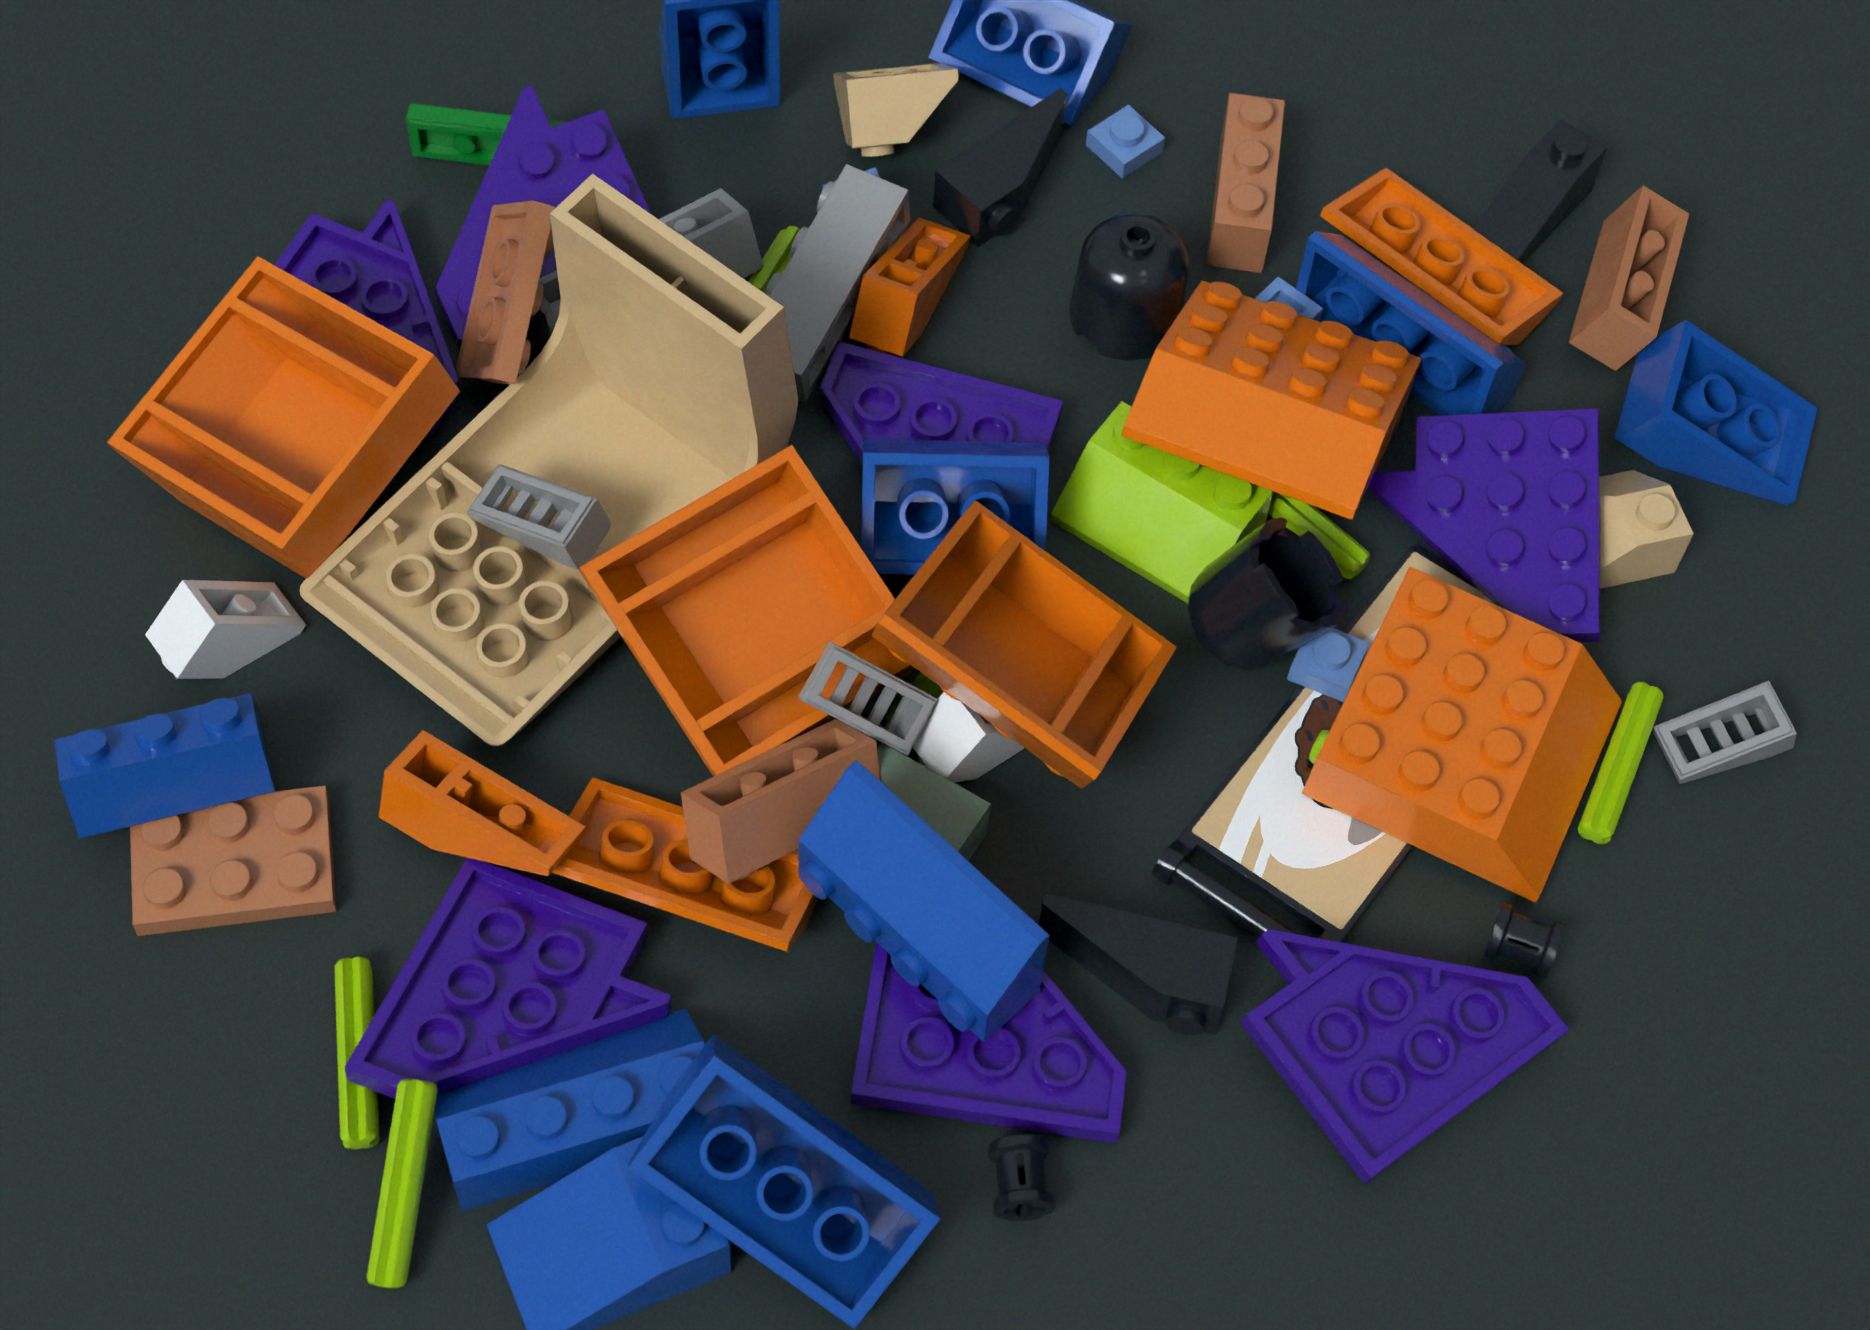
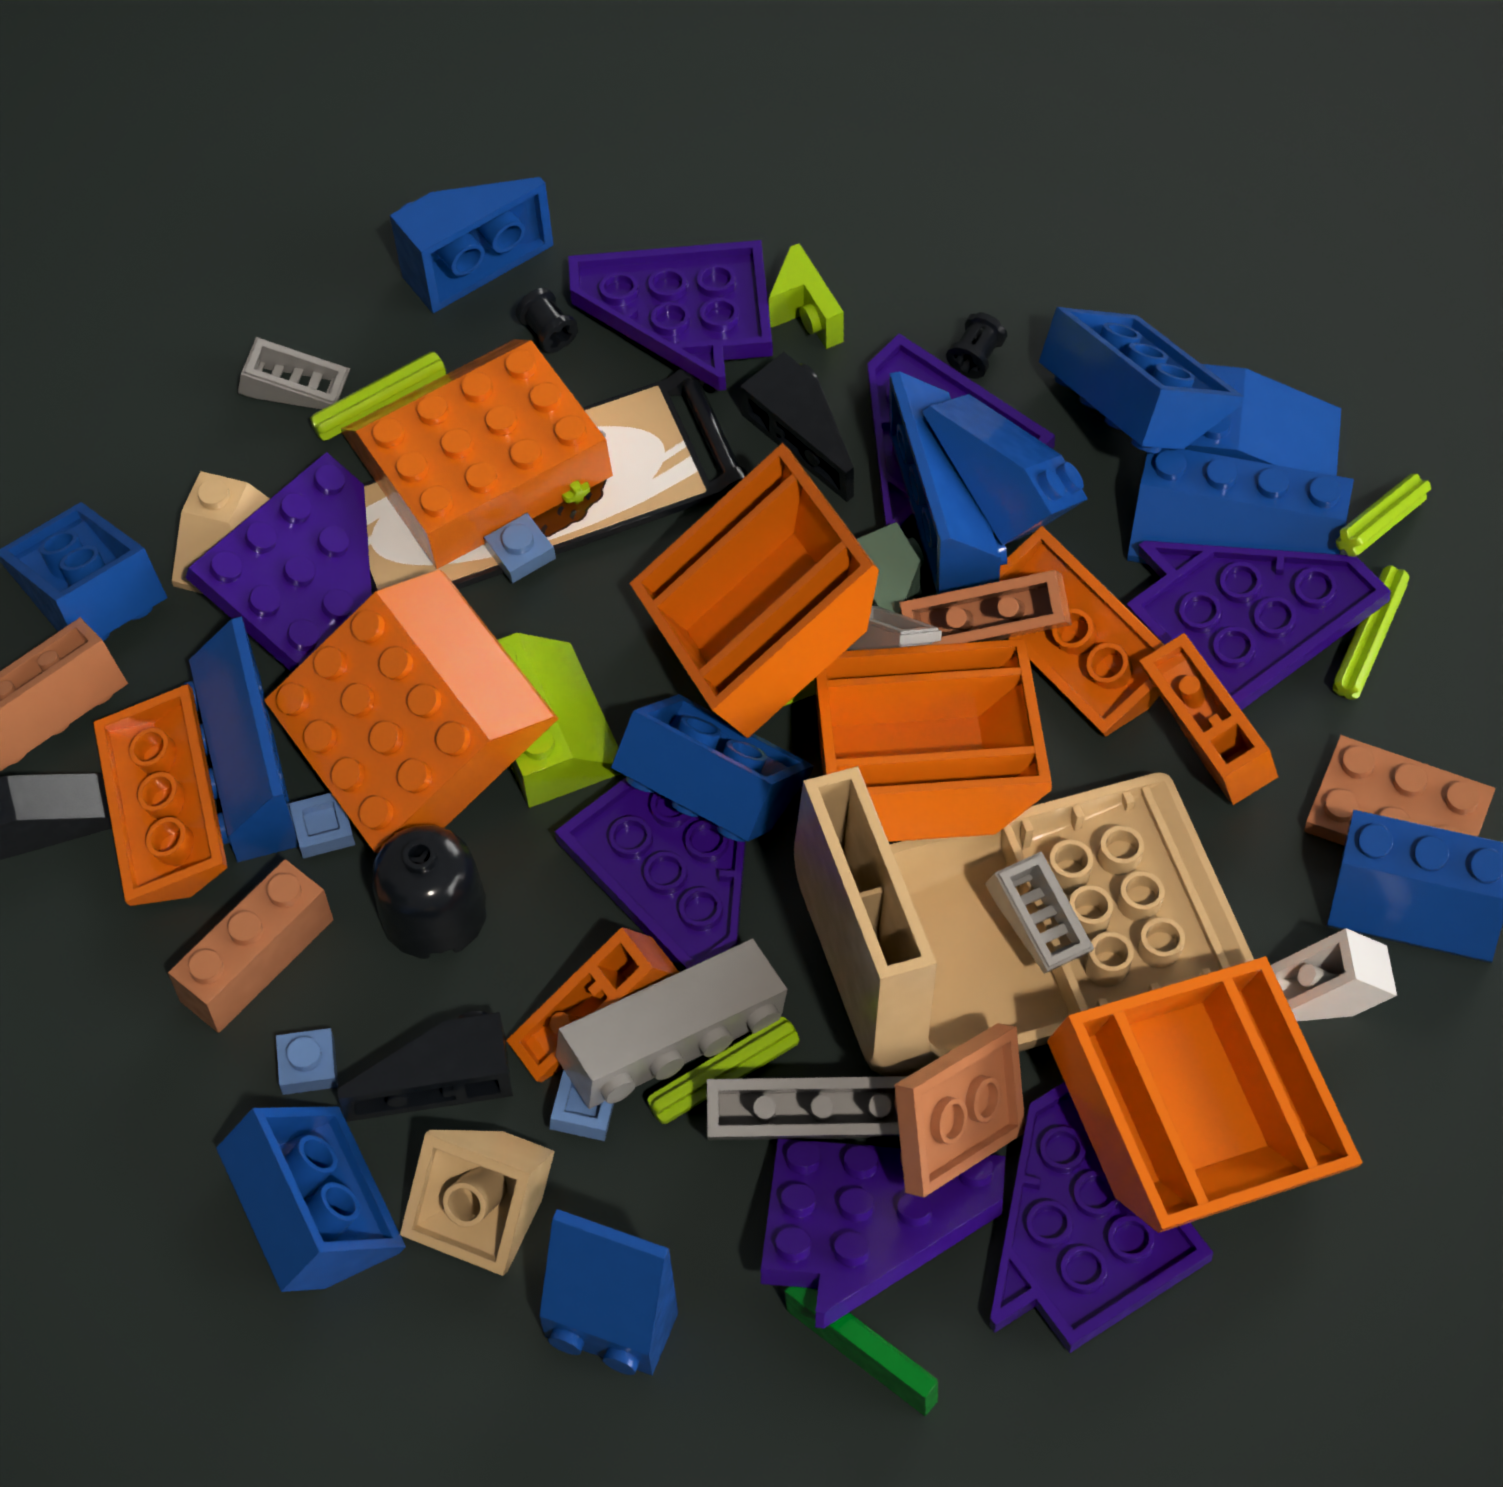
camera: 140 degrees left, 0 degrees up
(866, 951) = (1005, 468): none -> blue slope
(1265, 597) = (542, 576): black cylinder -> none
(1272, 1140) = (803, 293): none -> lime slope
(1697, 941) = (469, 237): none -> blue slope

